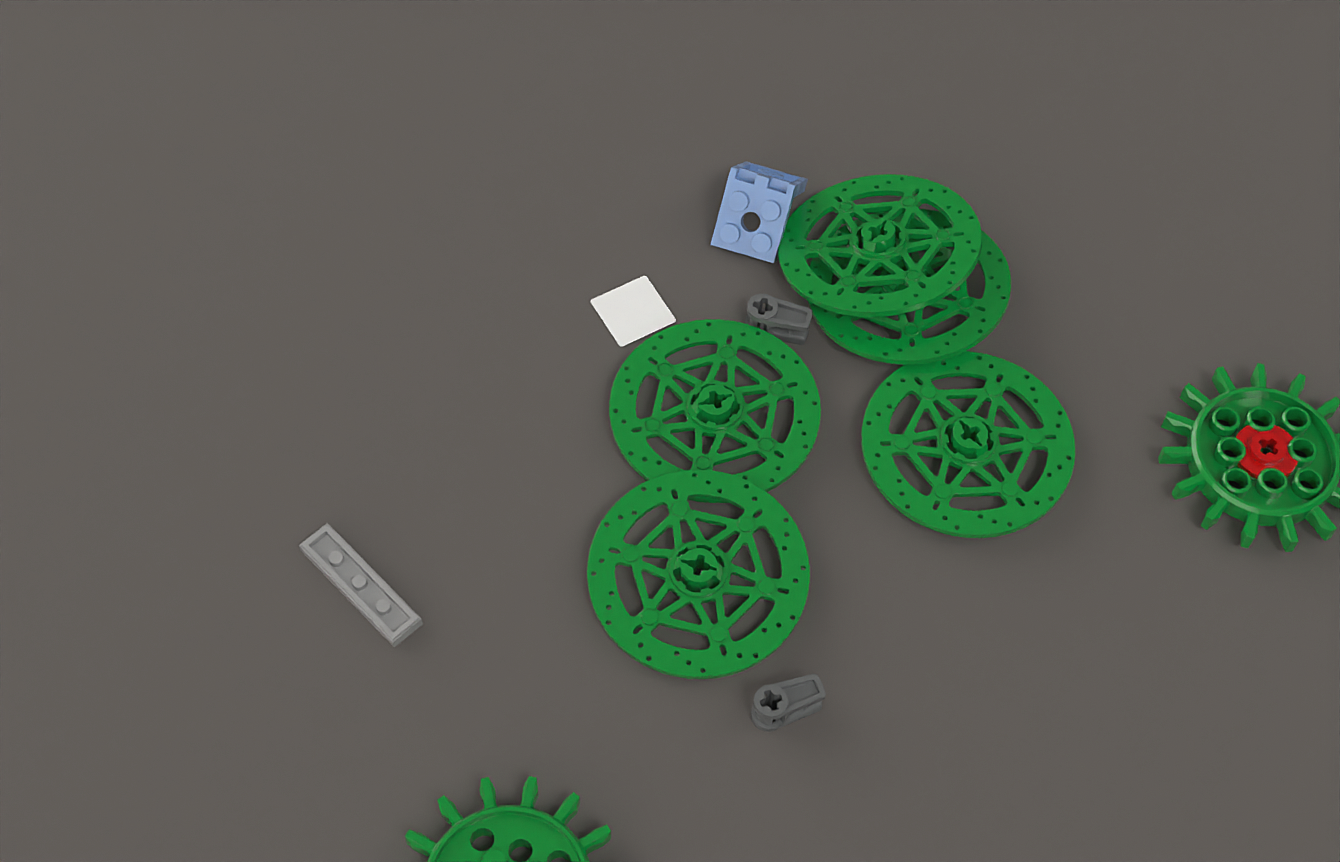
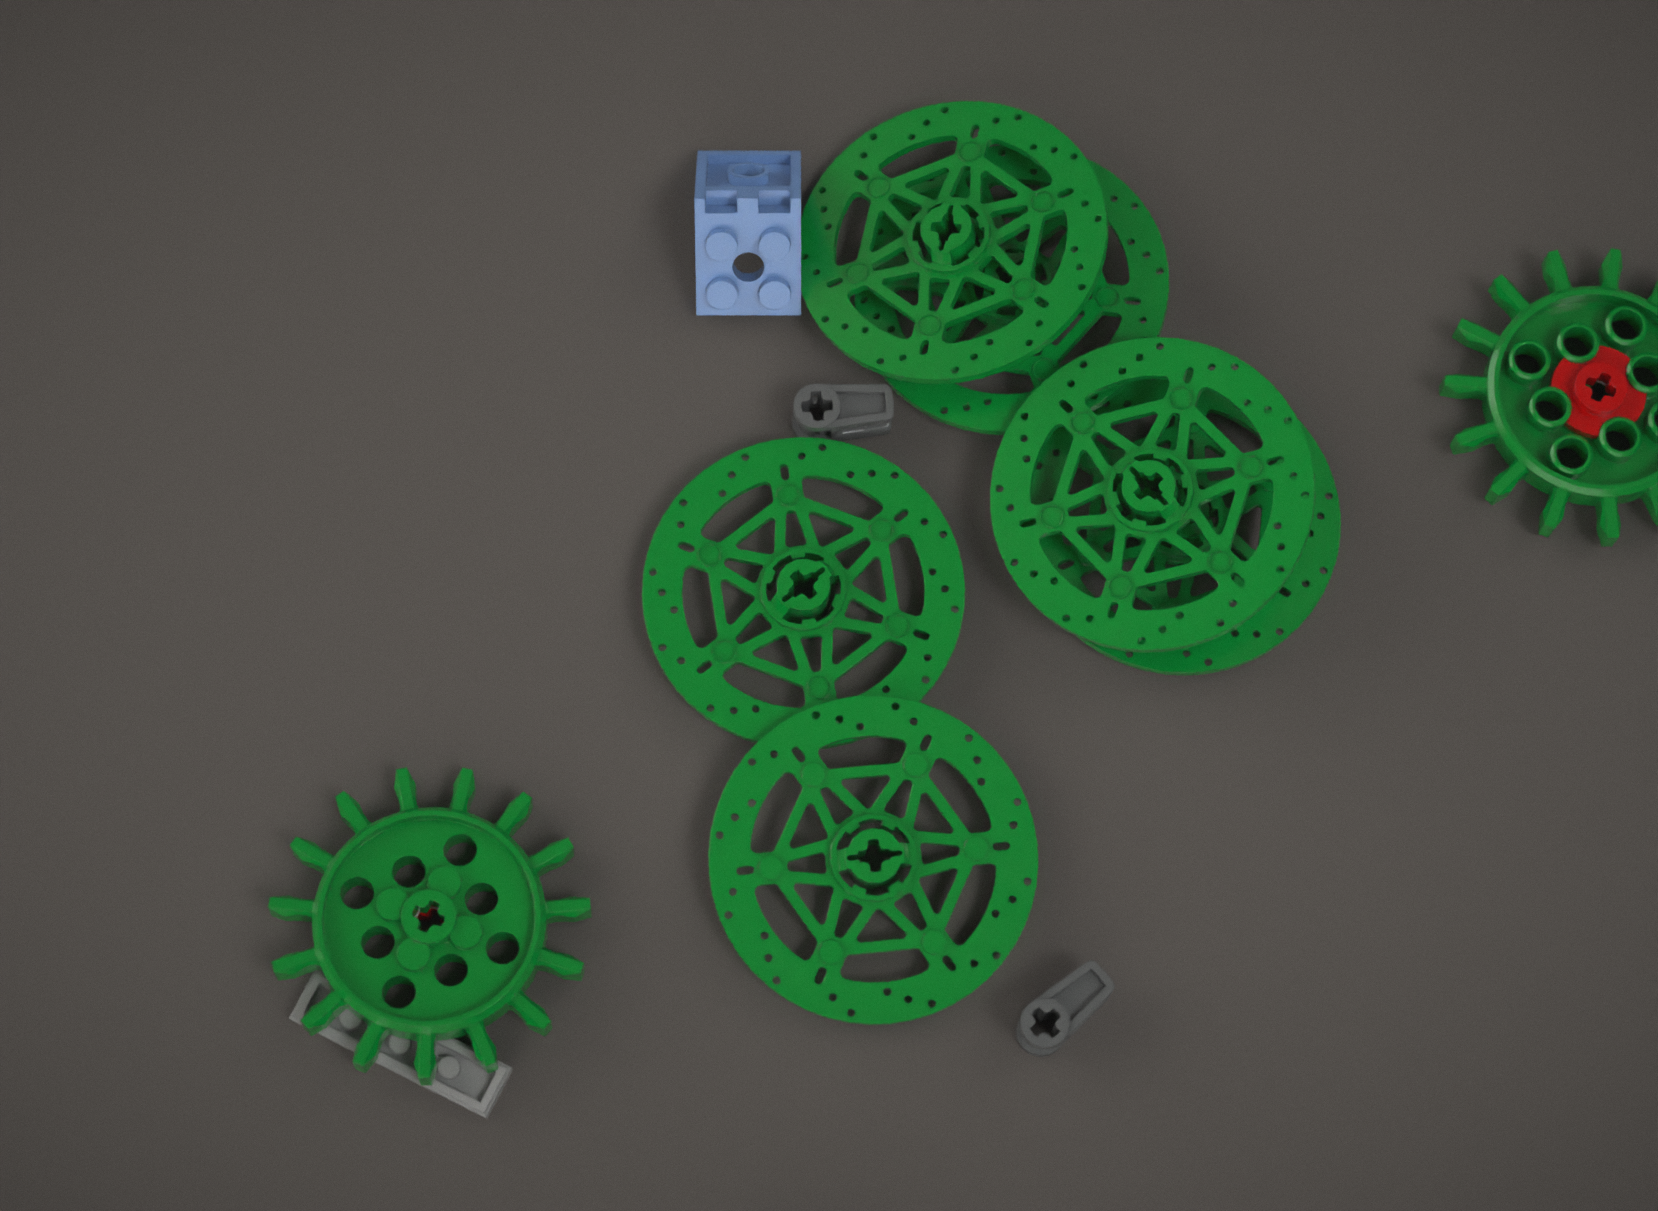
camera: 20 degrees left, 15 degrees up
(407, 519) = (423, 840): none -> green gear
(633, 311) = (621, 464): white sticker -> none
(954, 414) = (1151, 518): none -> green piece

